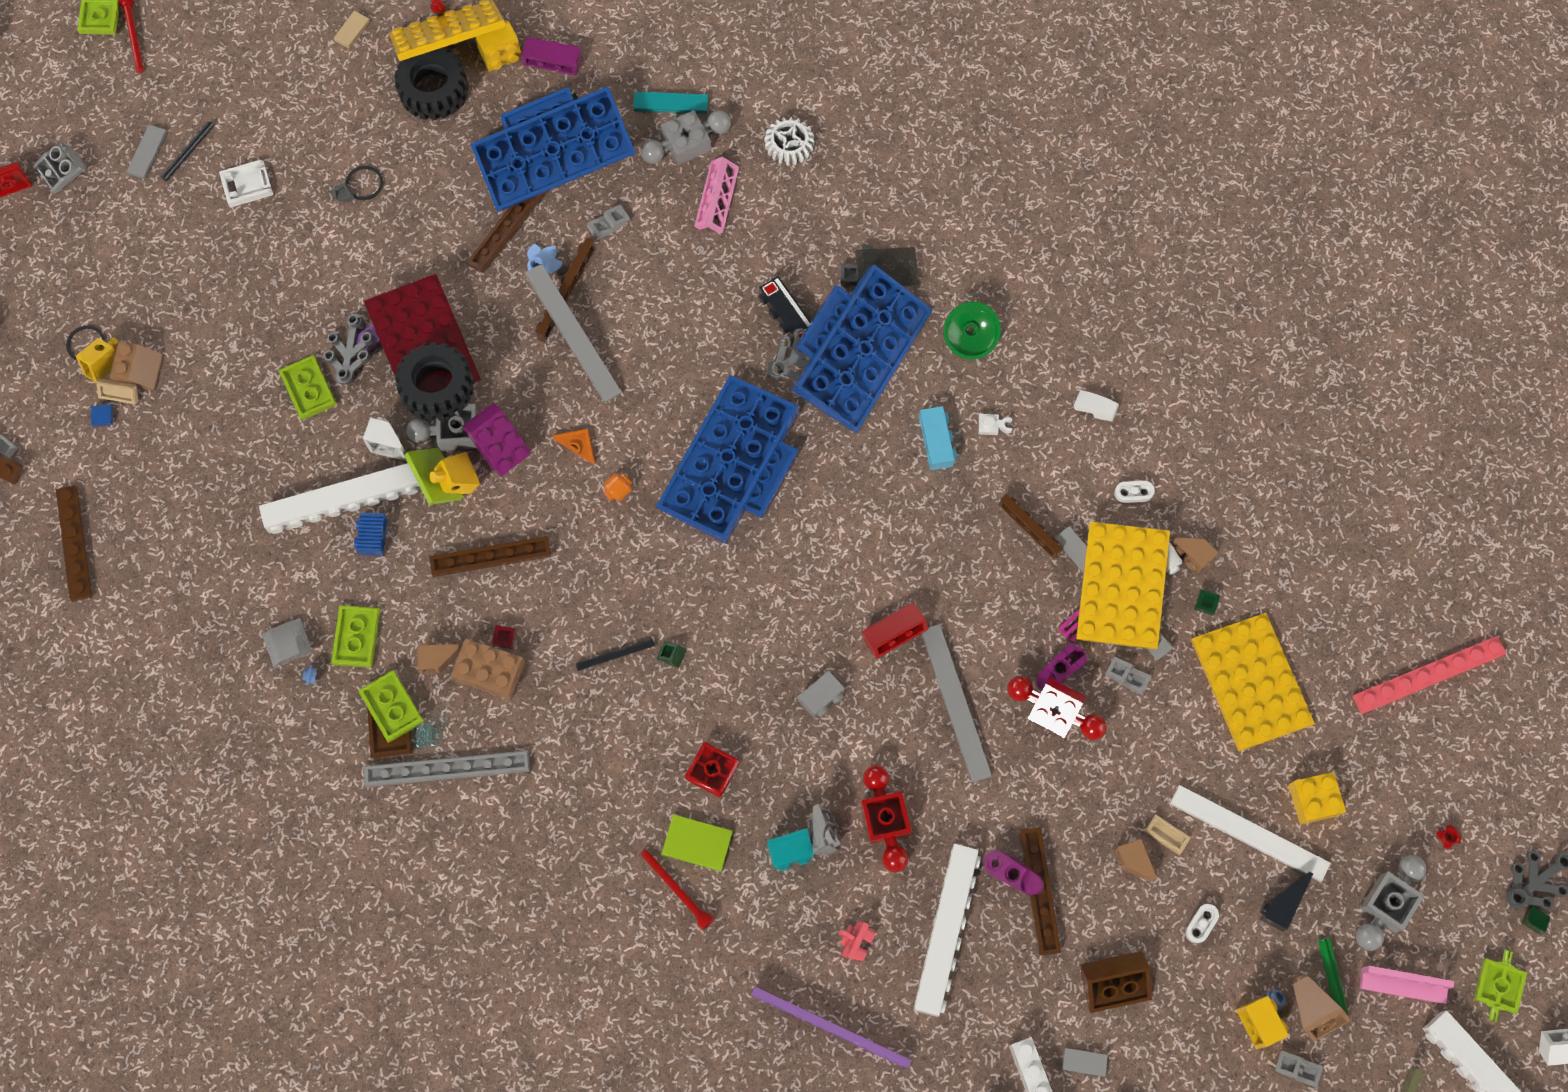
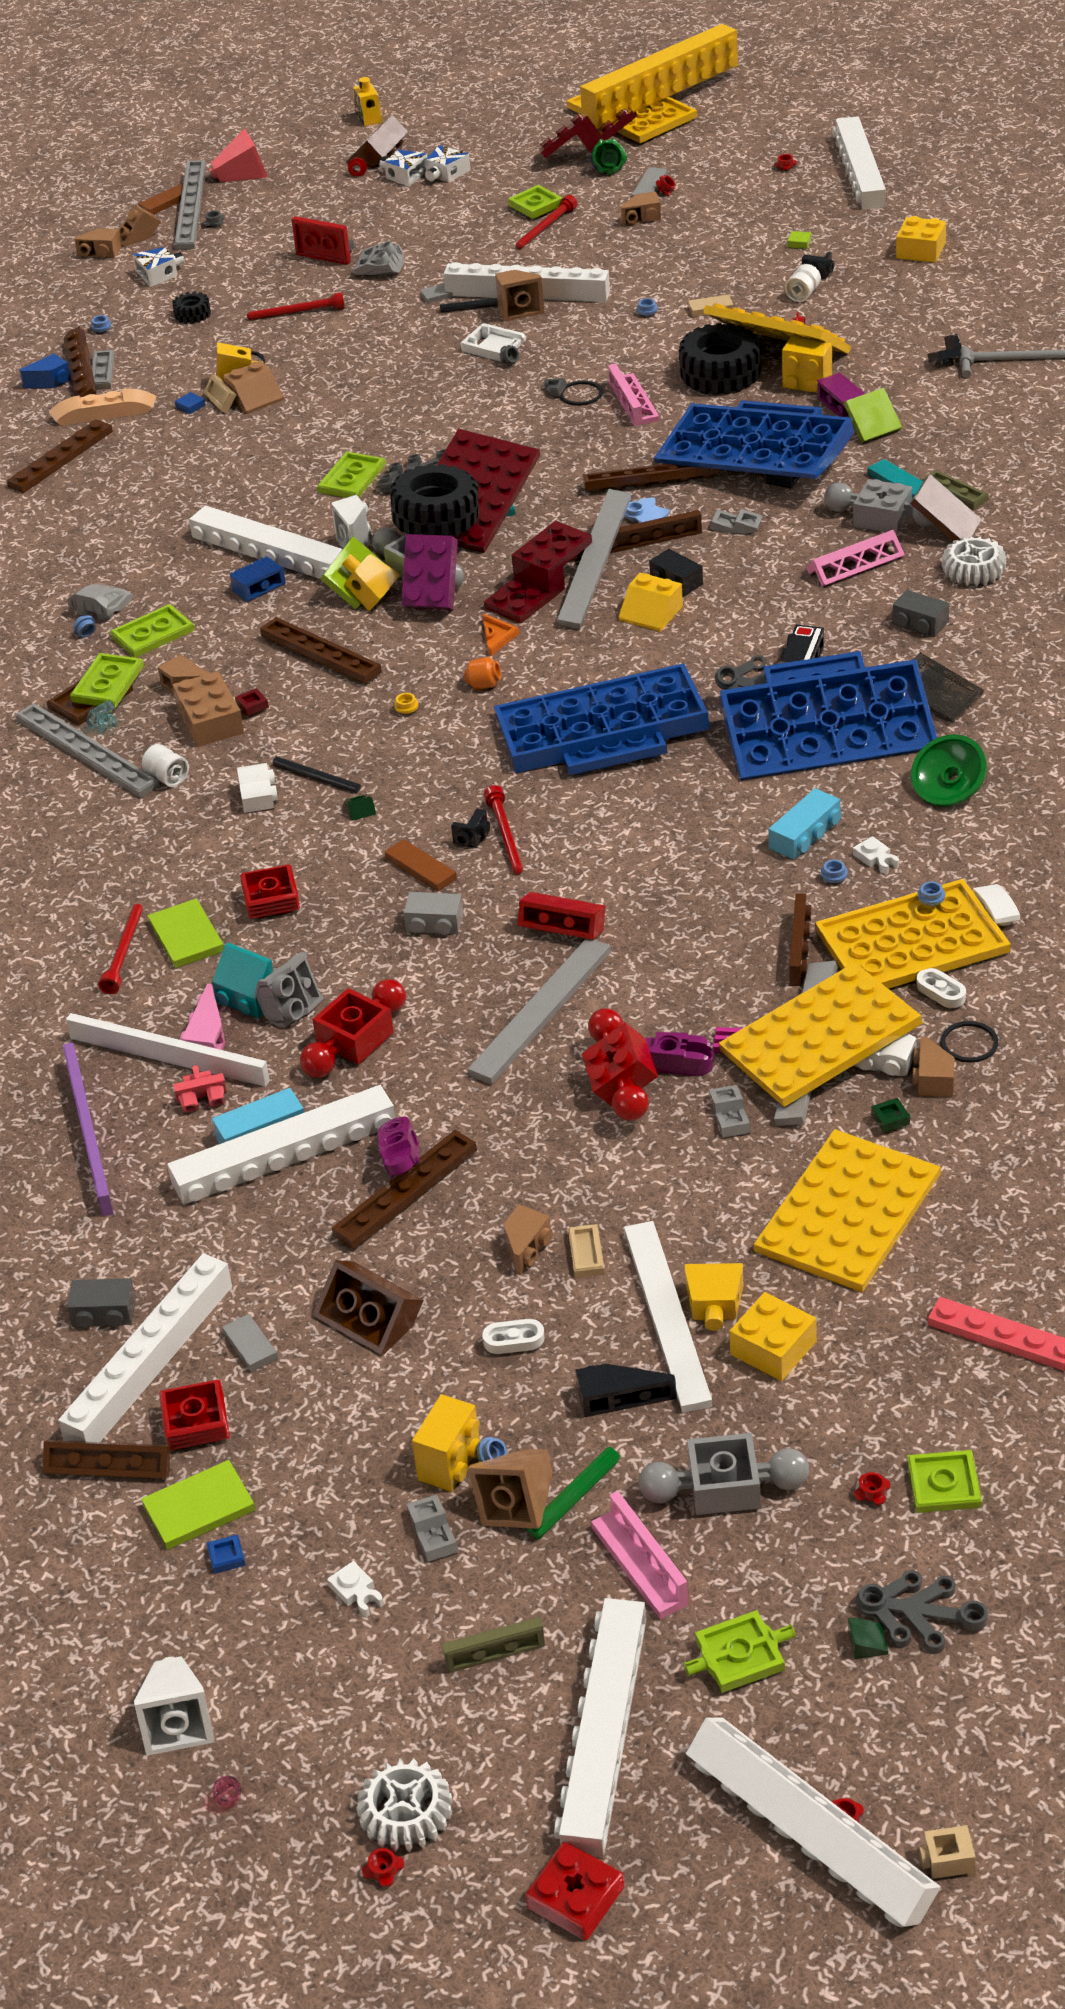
camera: 55 degrees right, 30 degrees down
(44, 473) = (102, 406): none -> light nougat brick
(79, 232) = (335, 301): none -> red piece
(202, 108) = (557, 282): none -> white brick
(218, 128) = (519, 294): none -> medium nougat slope
(276, 188) = (509, 355): none -> dark grey plate
(312, 61) = (647, 307): none -> medium blue plate
(407, 164) = (628, 399): none -> bright pink fence
(524, 737) = (165, 765): none -> white wheel
(551, 374) = (538, 571): none -> dark red bracket
(589, 59) = (872, 415): none -> lime tile
(598, 545) = (406, 703): none -> yellow plate
(598, 701) = (256, 787): none -> white brick
(629, 300) = (678, 569): none -> black brick
(645, 339) = (651, 602): none -> yellow slope
(704, 83) = (965, 493): none -> olive tile
(735, 115) = (945, 510): none -> tile
(746, 577) = (495, 798): none -> red piece
(763, 664) = (420, 865): none -> dark orange tile
(766, 608) = (473, 832): none -> black bracket
(802, 933) = (168, 1049): none -> white tile
(807, 899) = (205, 1023): none -> bright pink slope
(809, 212) = (920, 613): none -> dark grey brick
(915, 929) = (256, 1115): none -> medium azure brick
(988, 453) = (834, 871): none -> medium blue plate
(1066, 428) = (931, 893): none -> medium blue plate
(1080, 468) = (906, 936): none -> yellow plate
(1182, 496) = (970, 1023): none -> black piece
(1260, 800) = (714, 1292): none -> yellow torso
(1470, 799) = (944, 1481): none -> lime tile

